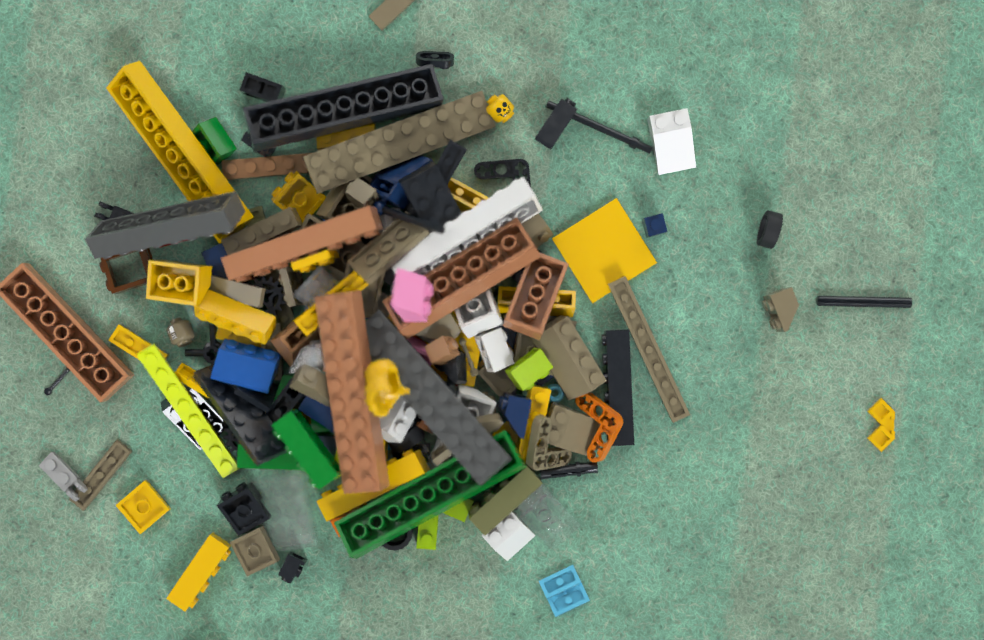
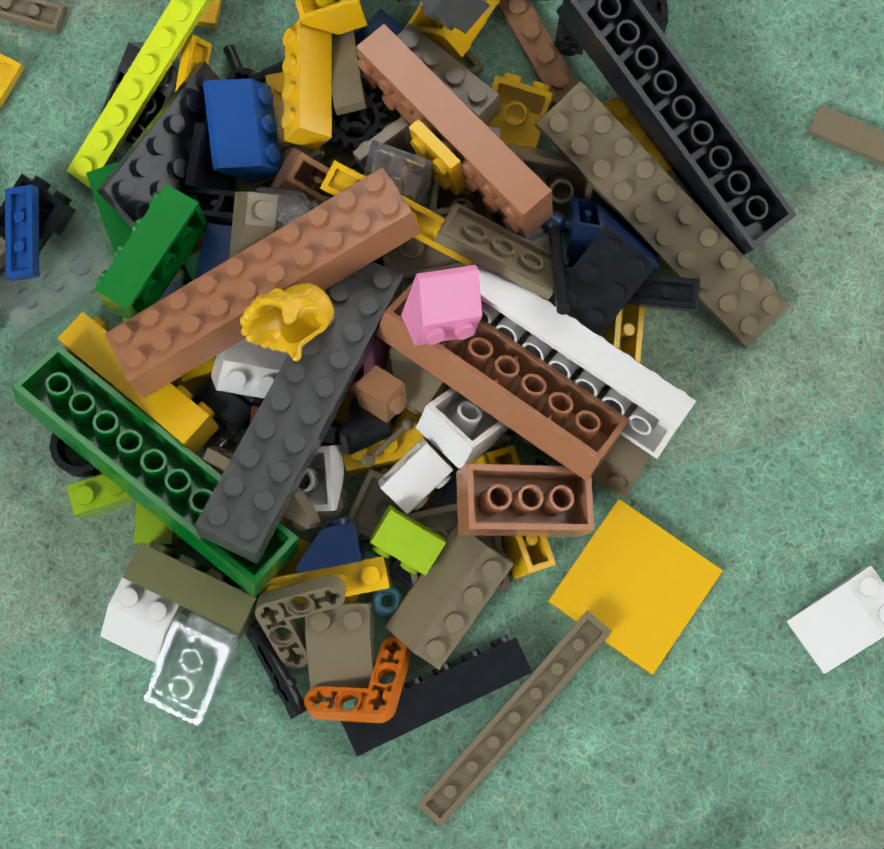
camera: 70 degrees right, 10 degrees down
(180, 332) = (254, 29): dark tan head -> none
(255, 518) = (22, 232): none -> blue plate
(361, 194) = (566, 185): dark tan slope -> none
(439, 59) = (805, 226): black plate -> none
(500, 108) = (776, 341): yellow head -> none
(511, 172) = (699, 393): black beam -> none
(556, 123) = (793, 430): black slope -> none
(564, 591) = (86, 744): medium azure slope -> none
(633, 142) = (817, 561): black bar -> none
(654, 225) = (708, 645): dark blue brick -> none
(769, 229) = (783, 830): black tyre -> none

